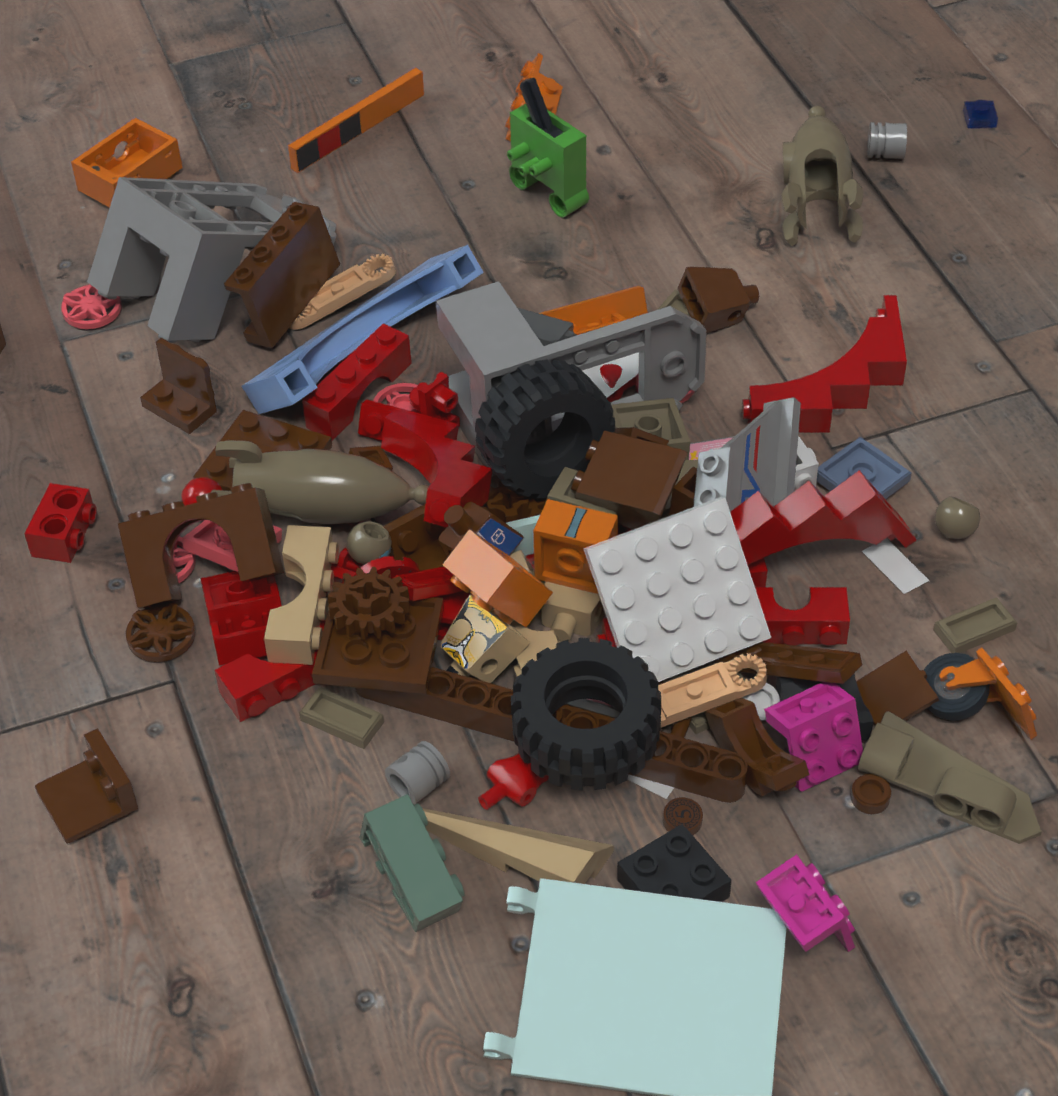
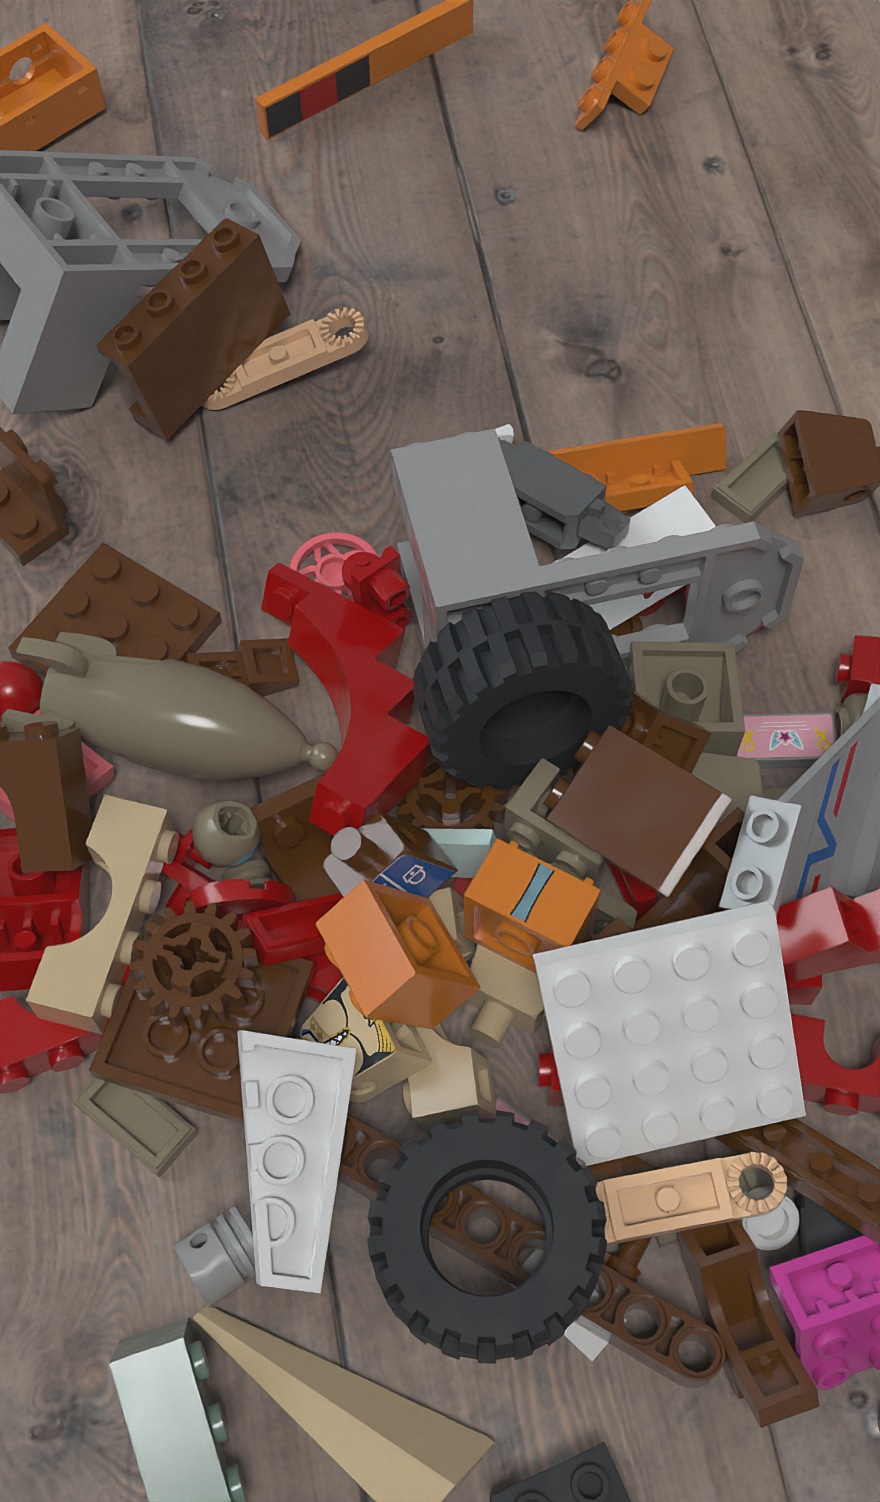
camera: 10 degrees right, 15 degrees up
(302, 369) = (181, 503): light blue arch -> none
(333, 403) = (234, 552): red arch -> none
(453, 693) = (294, 1141): none -> white wing
(513, 780) = (356, 1298): red piece -> none
(548, 152) = (625, 172): bright green piece -> none
(685, 812) = (610, 1407): reddish brown tile -> none

